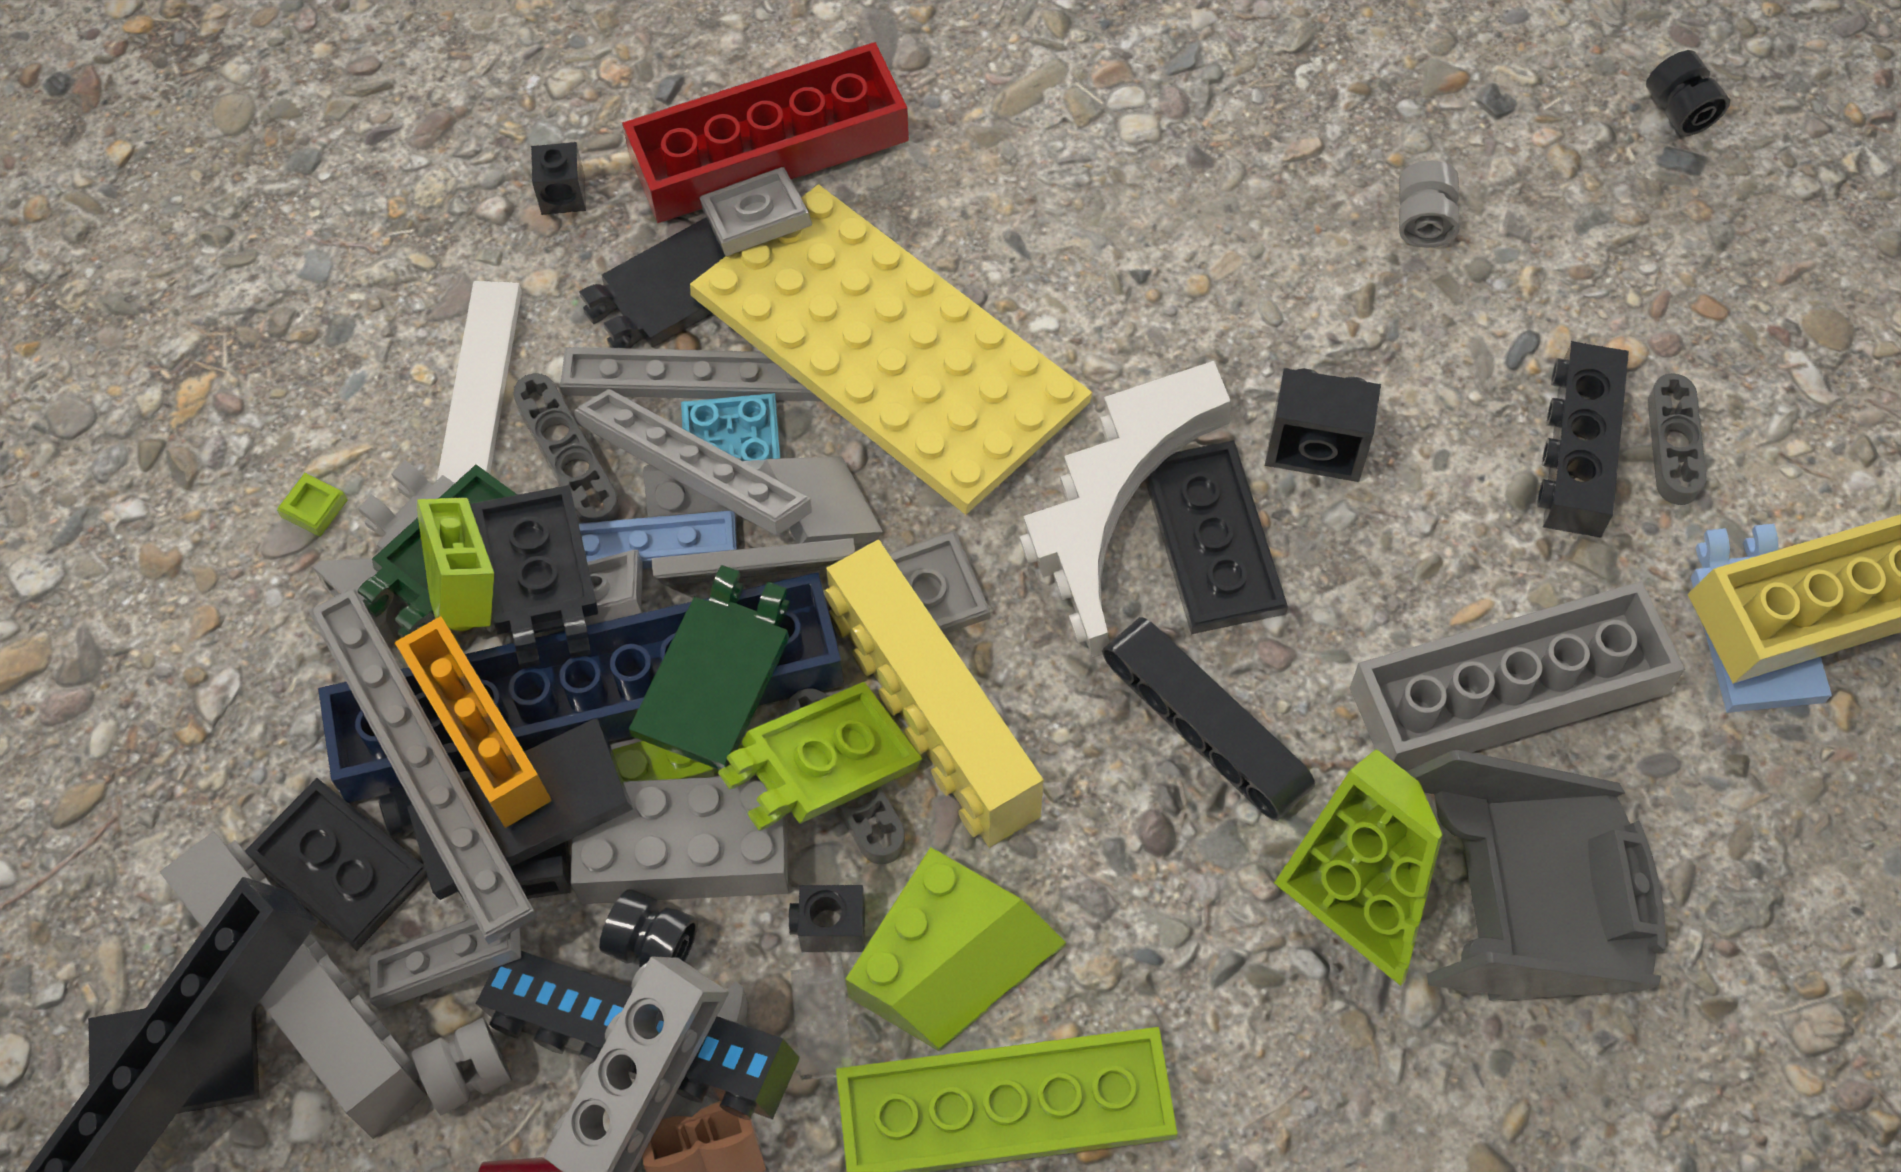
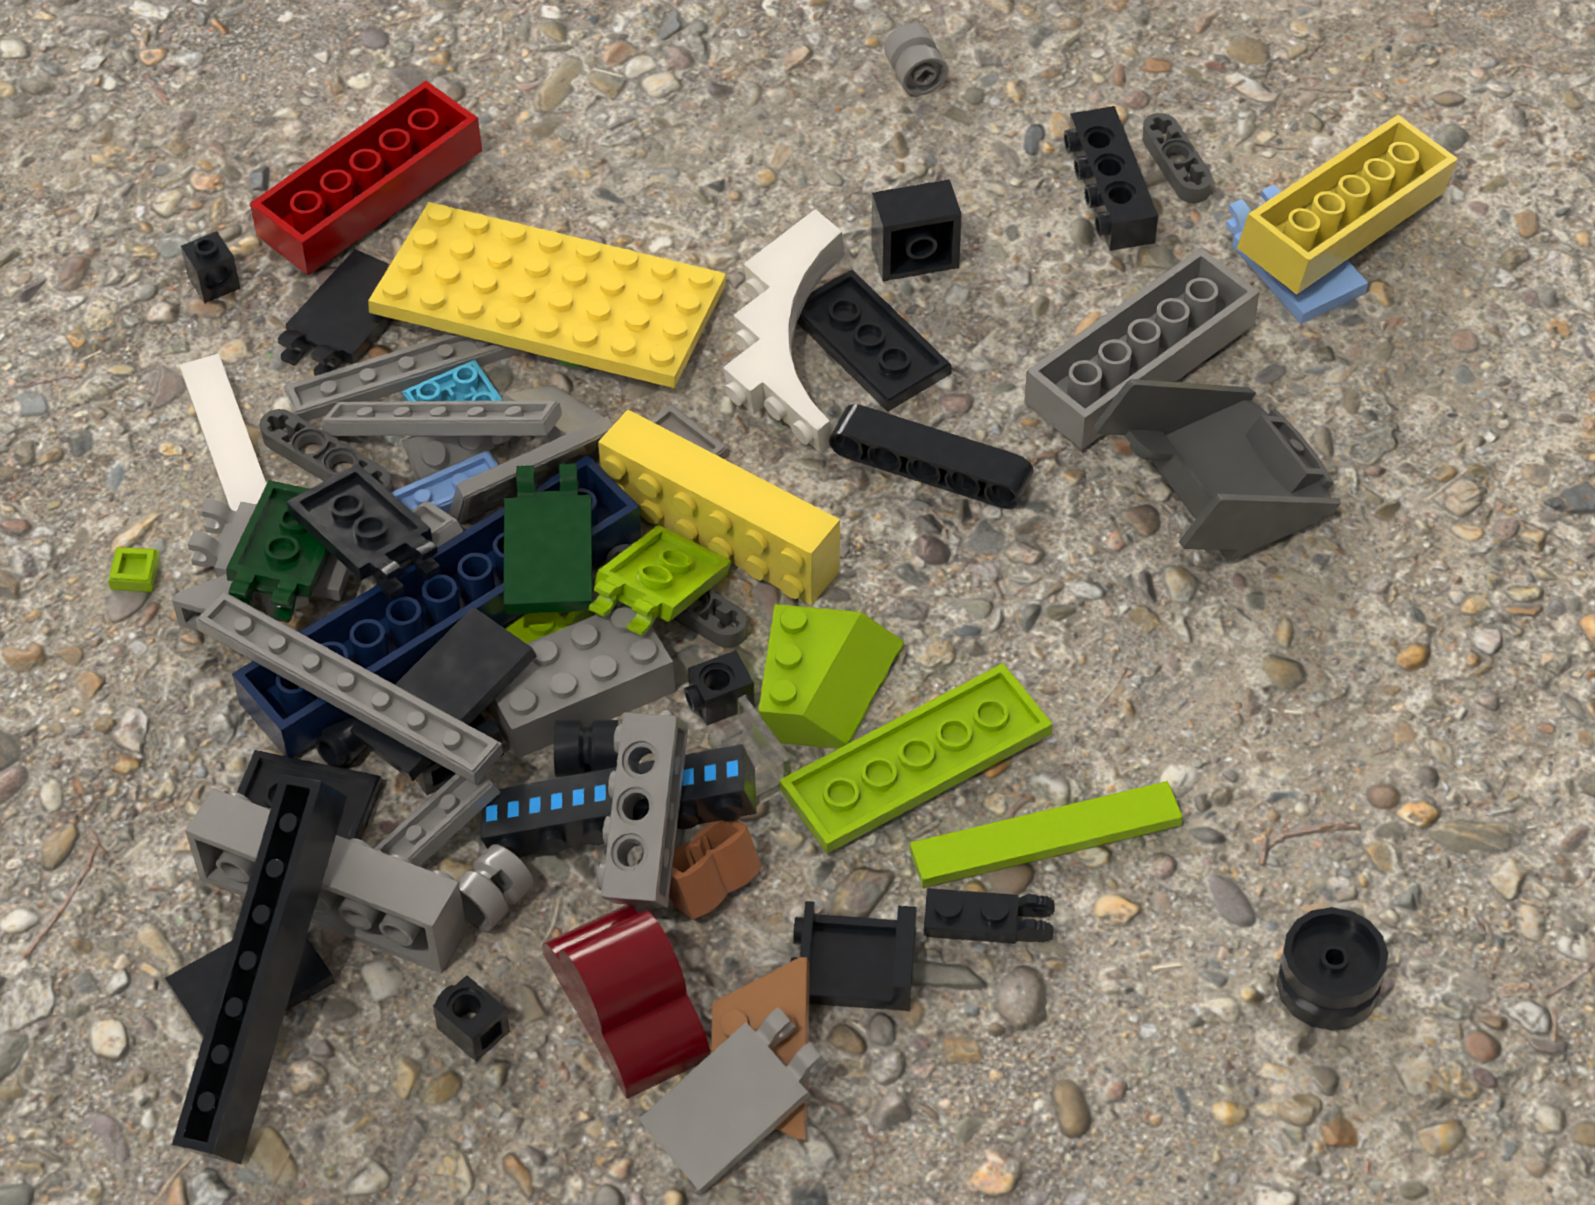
camera: 25 degrees left, 10 degrees down
(455, 563) = (304, 542): lime slope -> none
(473, 722) = (382, 635): light orange brick -> none
(755, 211) = (391, 234): light grey tile -> none
(1369, 863) = (1102, 491): lime wedge -> none

